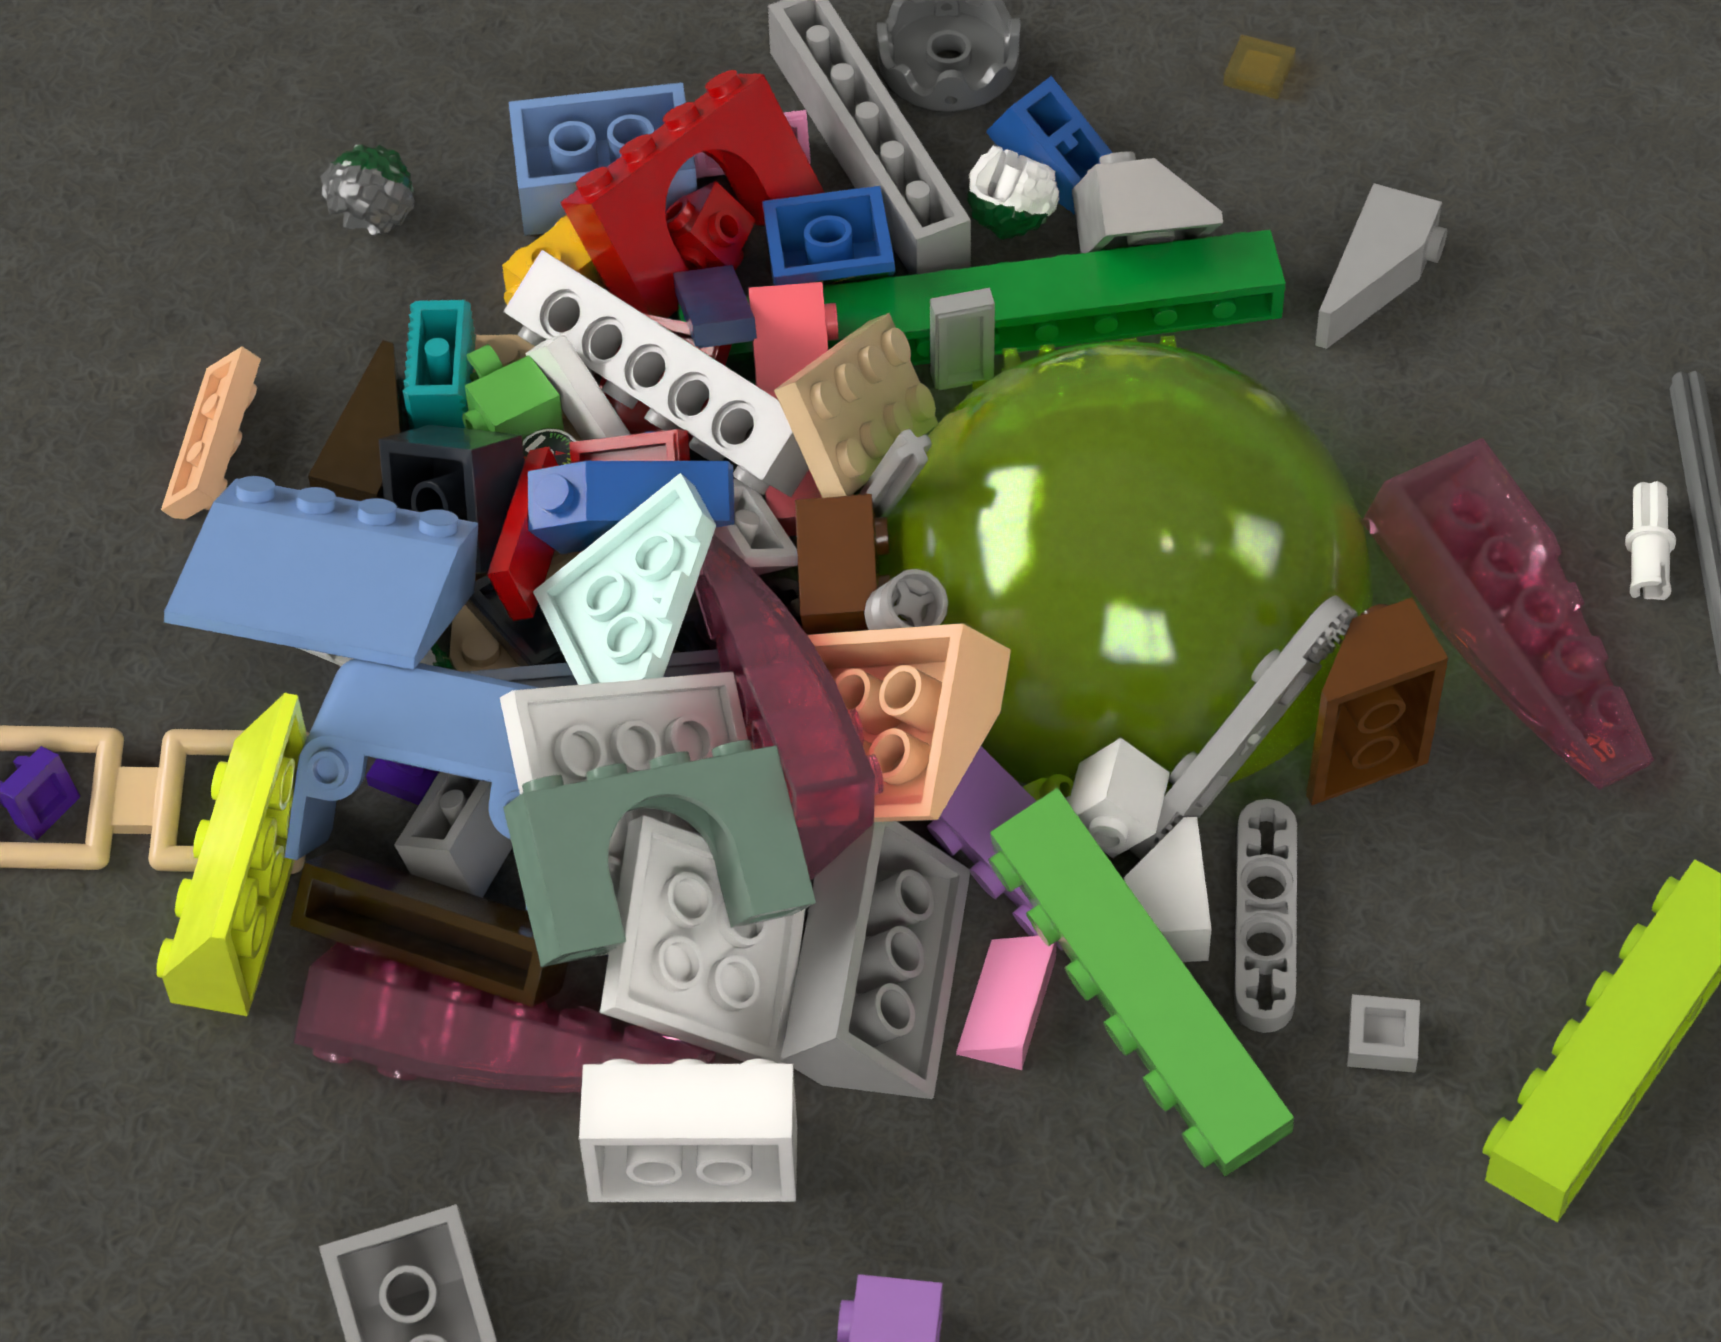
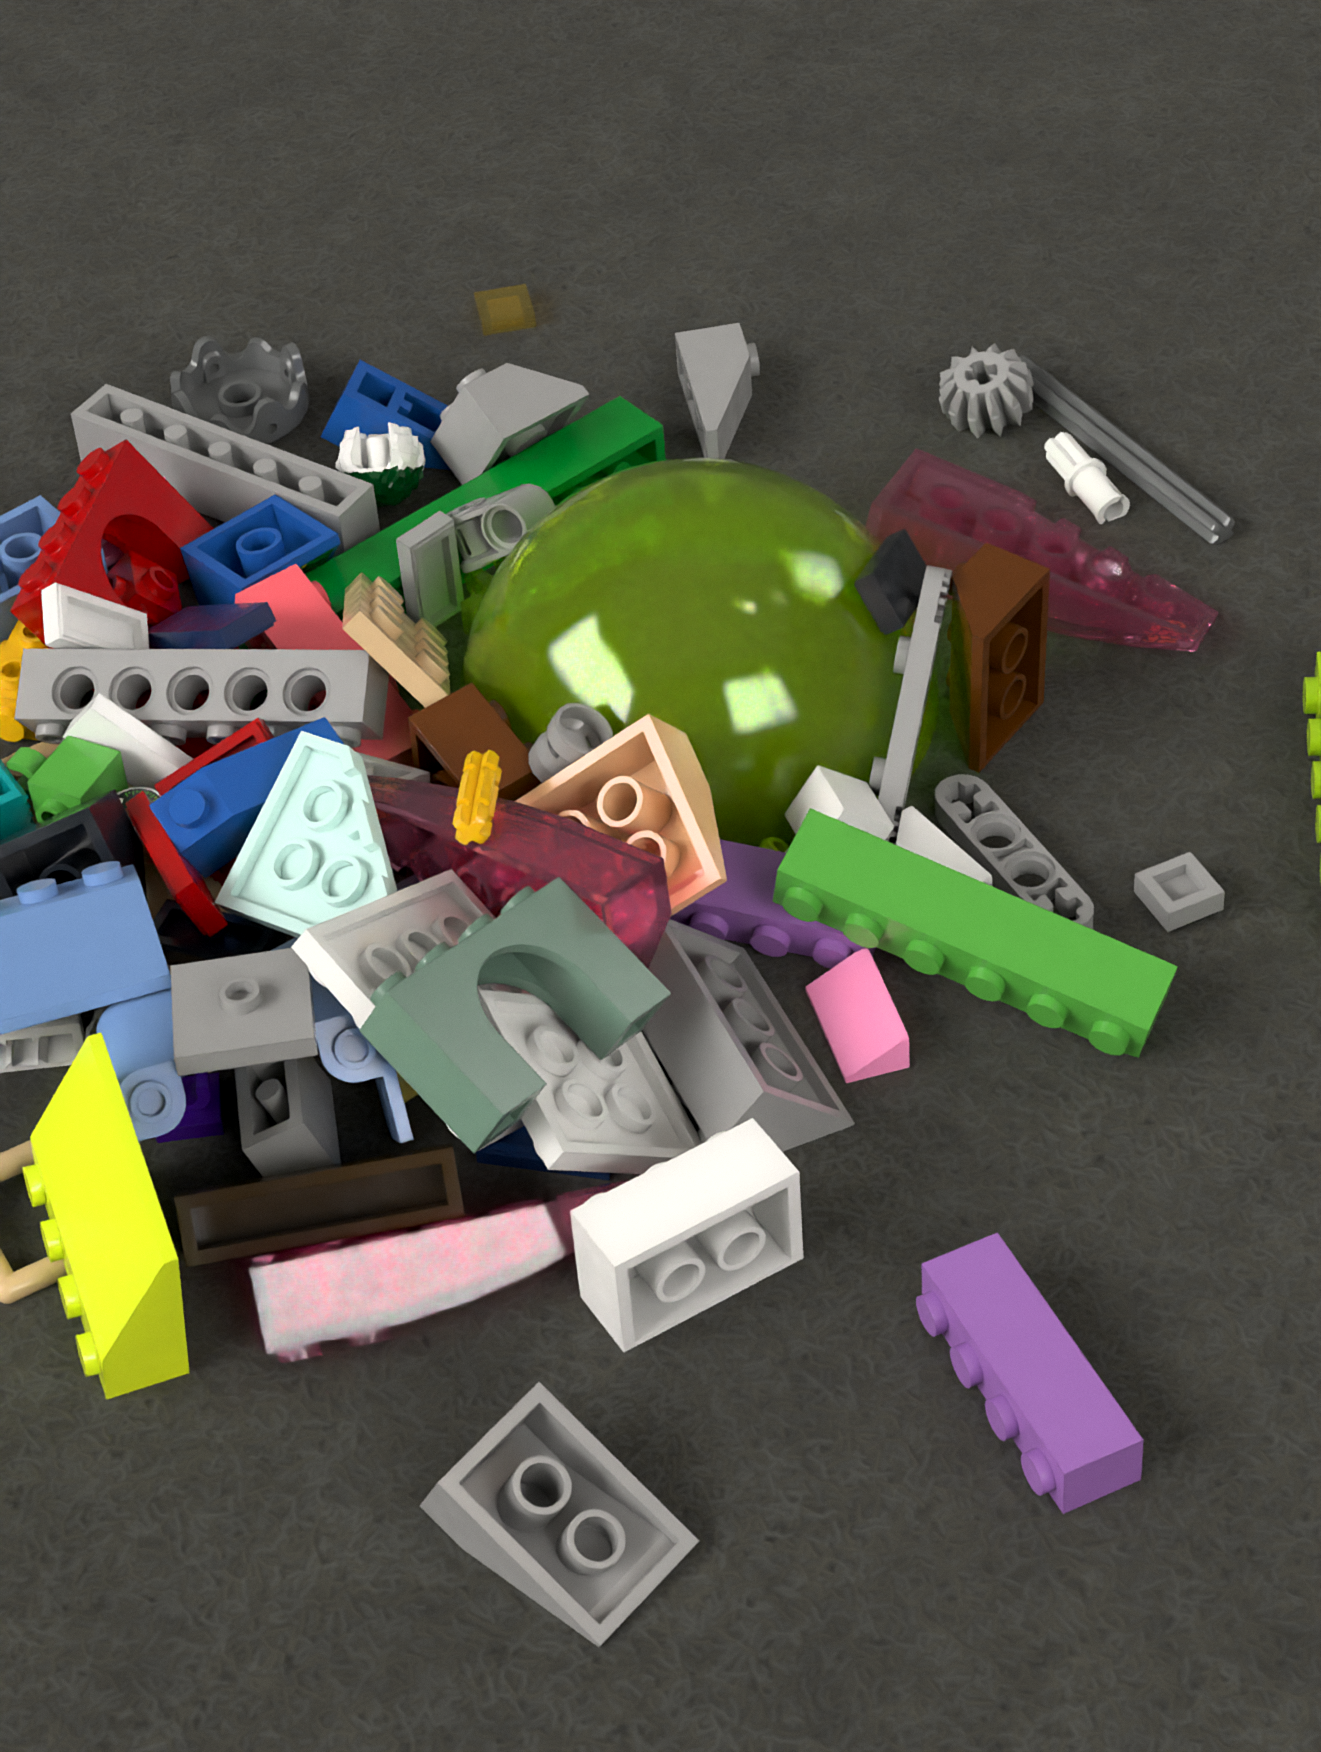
camera: 30 degrees left, 10 degrees down
(438, 729) = (242, 1011): none -> light grey plate
(619, 258) = (89, 622): none -> white tile
(775, 623) = (477, 797): none -> yellow axle
(897, 471) = (493, 639): light grey axle -> none
(1041, 321) = (494, 525): none -> light grey piece
(1294, 590) = (892, 582): none -> black tile
(1626, 396) = (986, 390): none -> light grey gear

